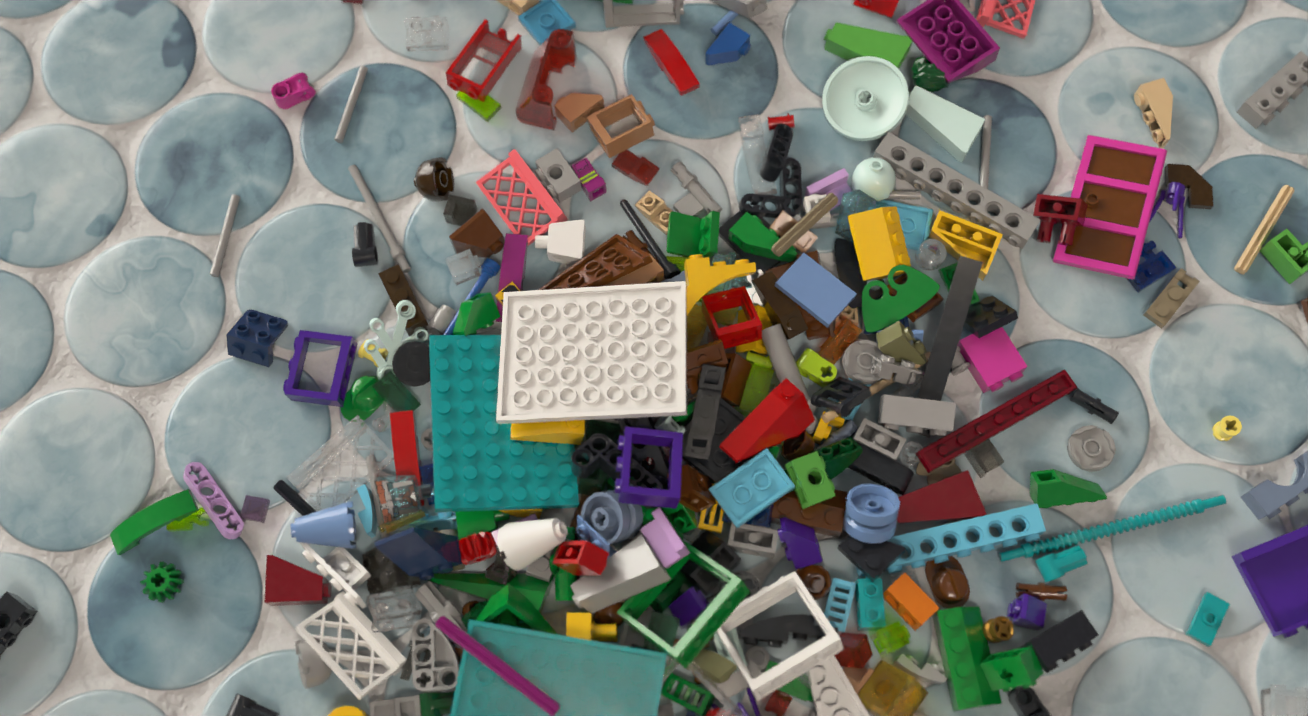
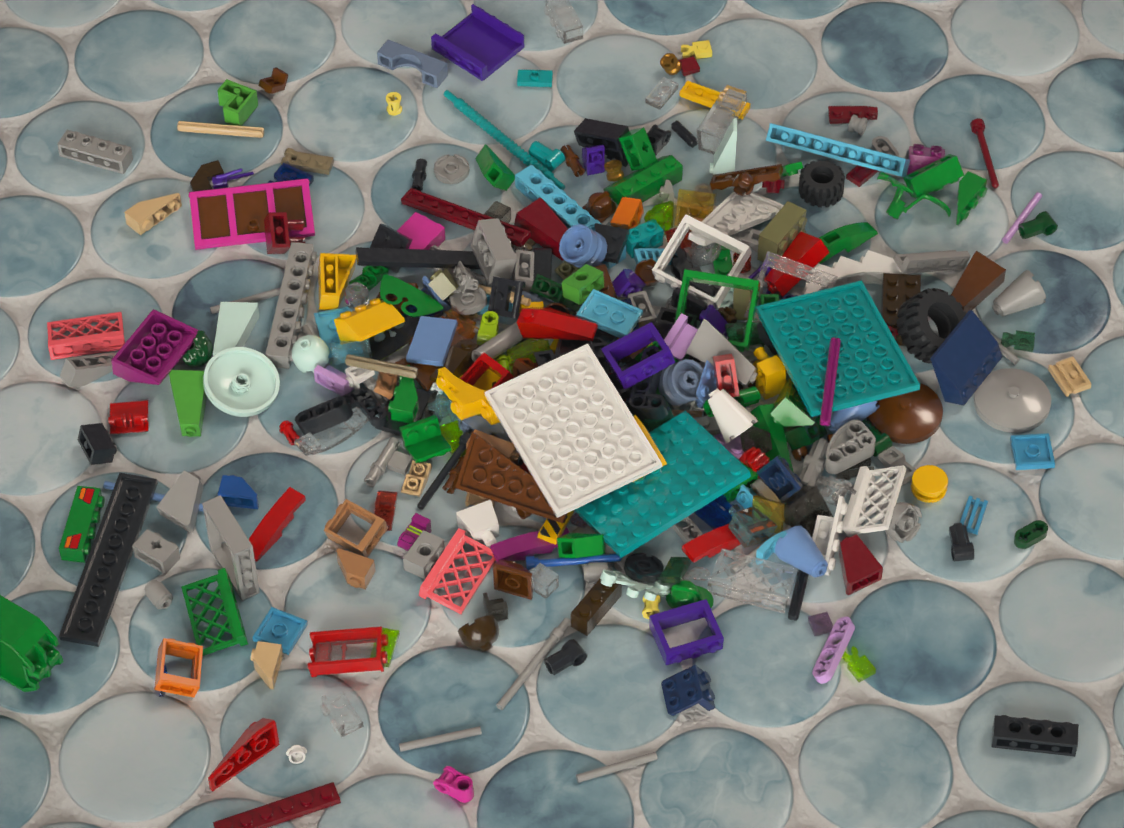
camera: 120 degrees left, 20 degrees down
(151, 519) = (879, 674): green slope -> none
(156, 575) = (914, 648): green gear -> none
(536, 96) = (343, 598): clear red windscreen -> none

